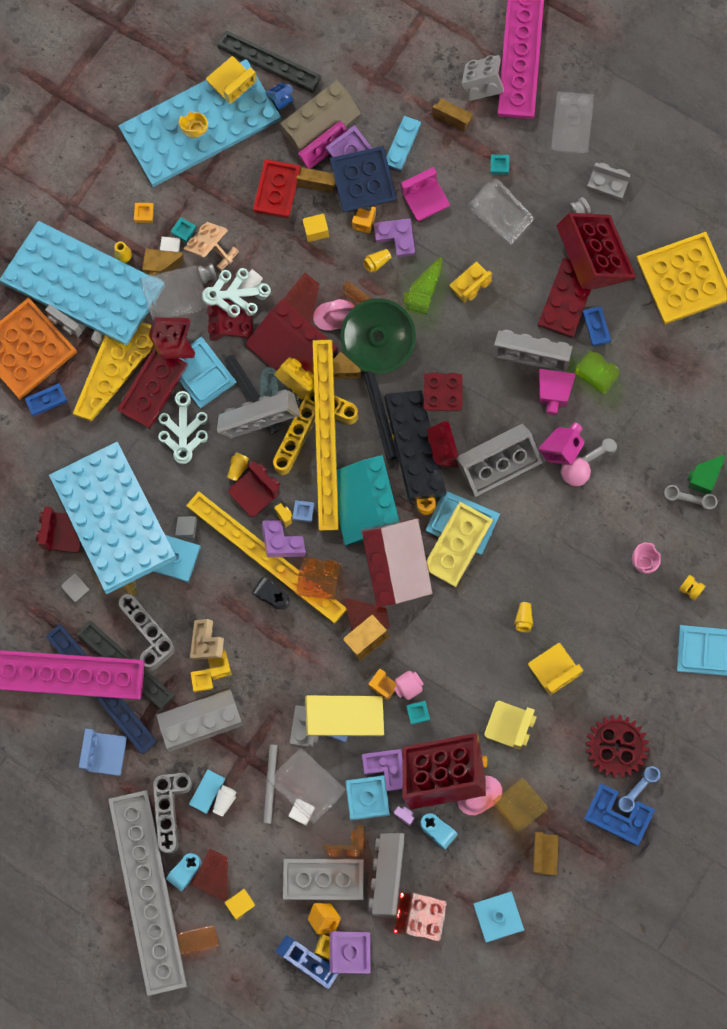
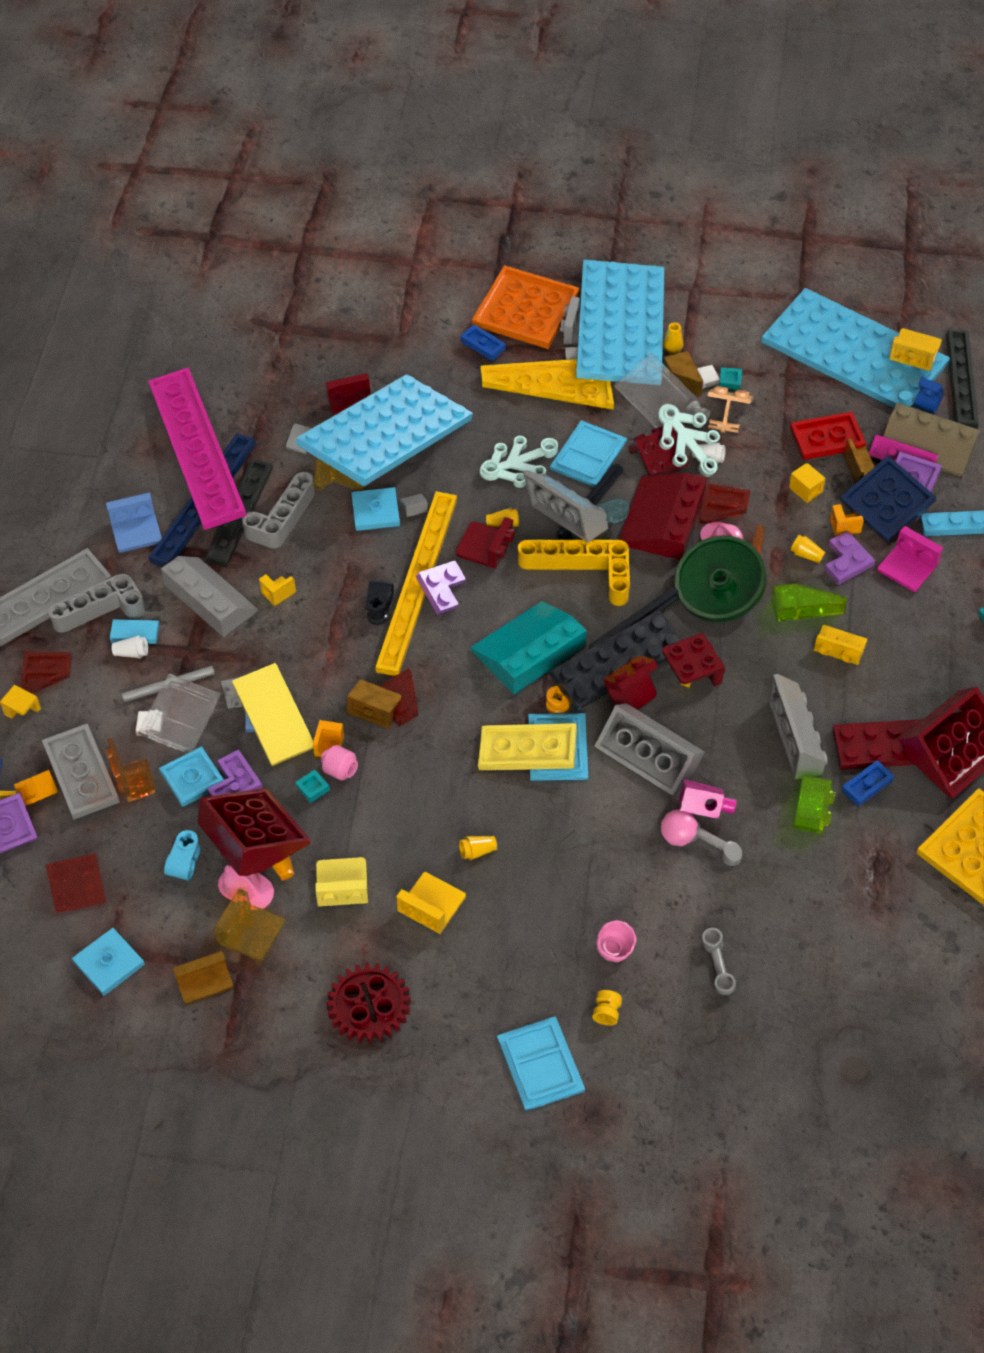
camera: 60 degrees right, 20 degrees down
(143, 212) = (727, 341): light orange plate -> none
(152, 388) = (546, 416): dark red plate -> none
(170, 337) = (606, 406): dark red bracket -> none
(182, 874) = (36, 640): medium azure piece -> none
(193, 125) = (843, 336): yellow hair -> none
(201, 680) = (250, 578): yellow plate -> none
(203, 644) = (293, 564): tan plate -> none
(284, 514) = (472, 577): yellow plate -> none
(295, 377) = (629, 519): yellow bracket -> none
(303, 511) = (486, 594): medium blue plate -> none
(318, 578) = (416, 627): clear orange bracket -> none
(325, 435) = (578, 572): yellow plate -> none
(345, 368) = (663, 562): pearl gold slope -> none
(388, 875) = (109, 829): light grey slope -> none
(396, 562) = (471, 690): slope -> none
(404, 815) = (186, 817): lavender plate -> none
(500, 211) = (940, 636): clear slope -> none
(554, 389) = (766, 770): dark pink torso -> none
(614, 823) = (273, 1057): blue plate -> none
(649, 775) = (304, 1043): medium blue bar -> none
(705, 475) = (758, 968): green slope -> none

